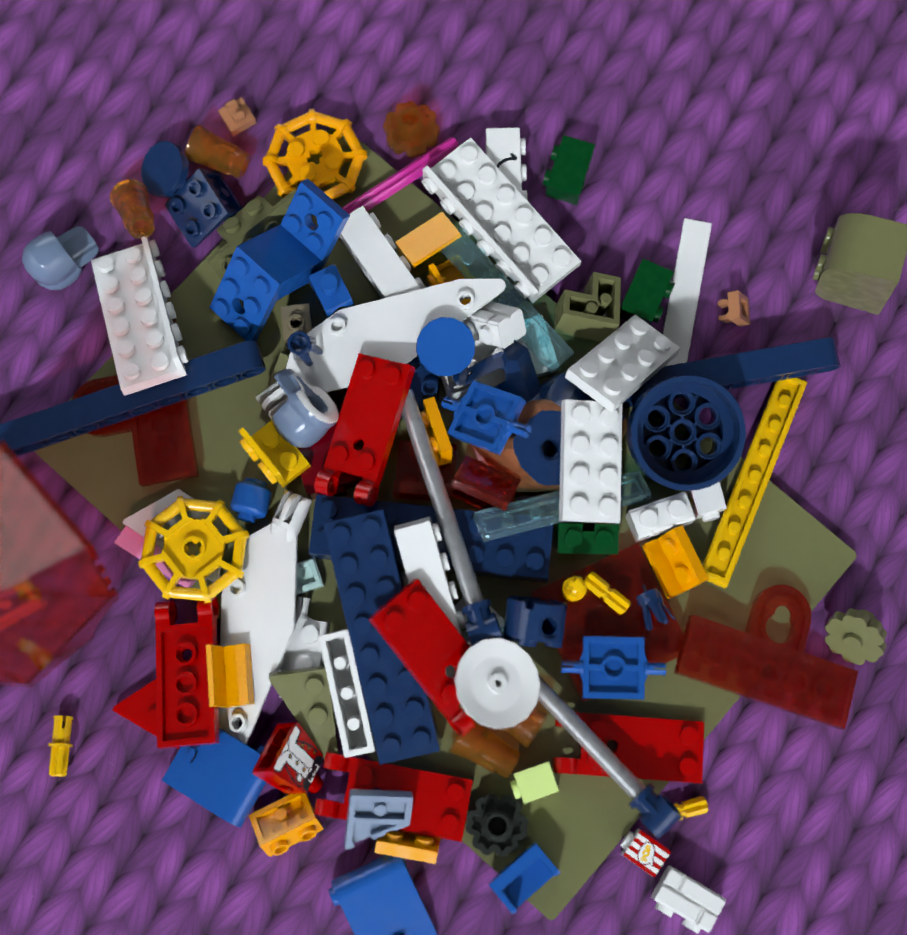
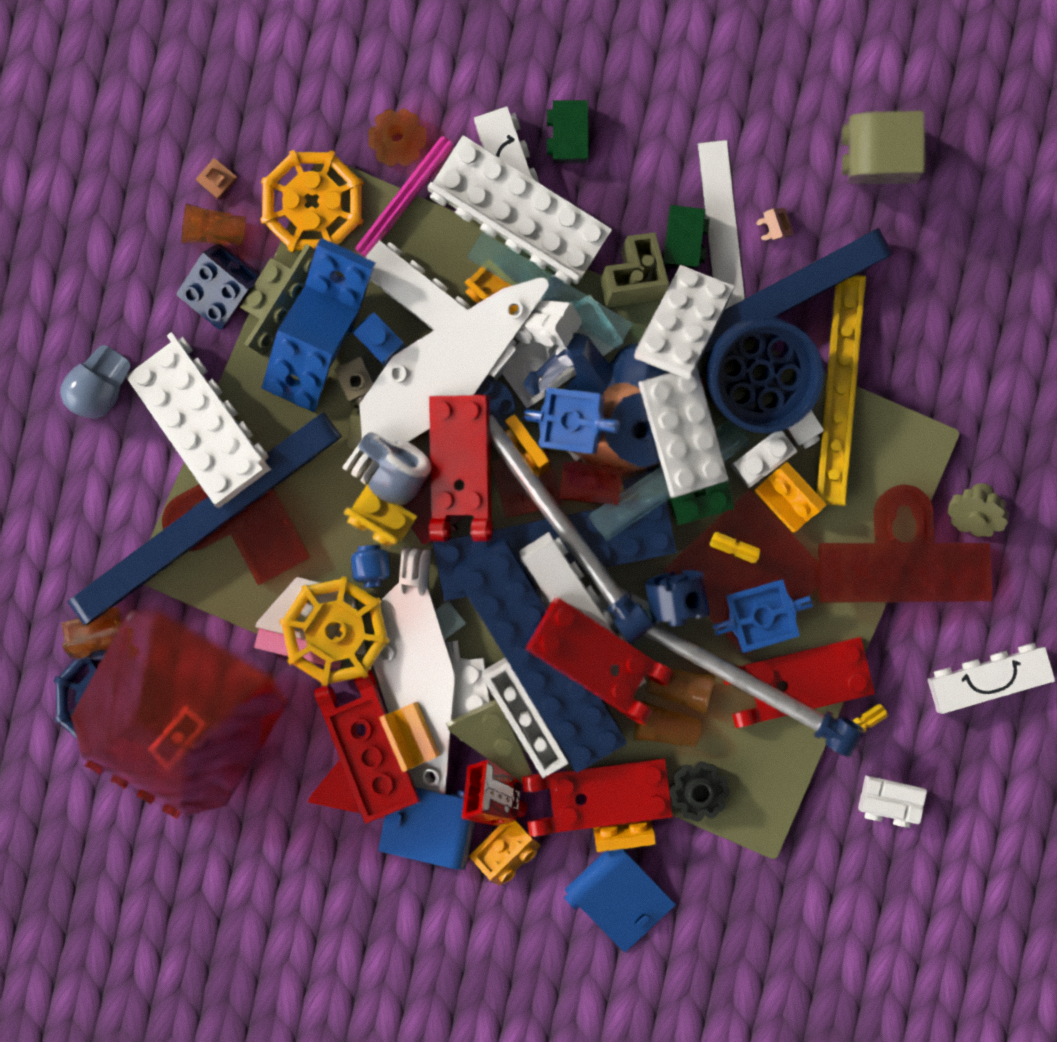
camera: 20 degrees left, 10 degrees up
(60, 746) = (271, 850): yellow axle -> none
(132, 203) = (150, 310): clear orange plant -> none
(164, 169) = (166, 261): dark blue tile -> none
(300, 345) = (371, 406): dark blue piece -> none
(376, 813) = (587, 818): sand blue wing -> none
(427, 239) = (455, 255): light orange panel -> none
(445, 346) = (510, 362): blue tile -> none
(497, 683) = (662, 668): white piece -> none
(523, 877) = (737, 829): blue panel -> none
(534, 783) = (721, 743): yellowish green brick -> none
(574, 589) = (704, 555): yellow axle -> none
(644, 851) = (840, 771): brick -> none
(655, 601) = (780, 543): dark blue piece -> none
(822, 807) = (990, 679): none -> white brick

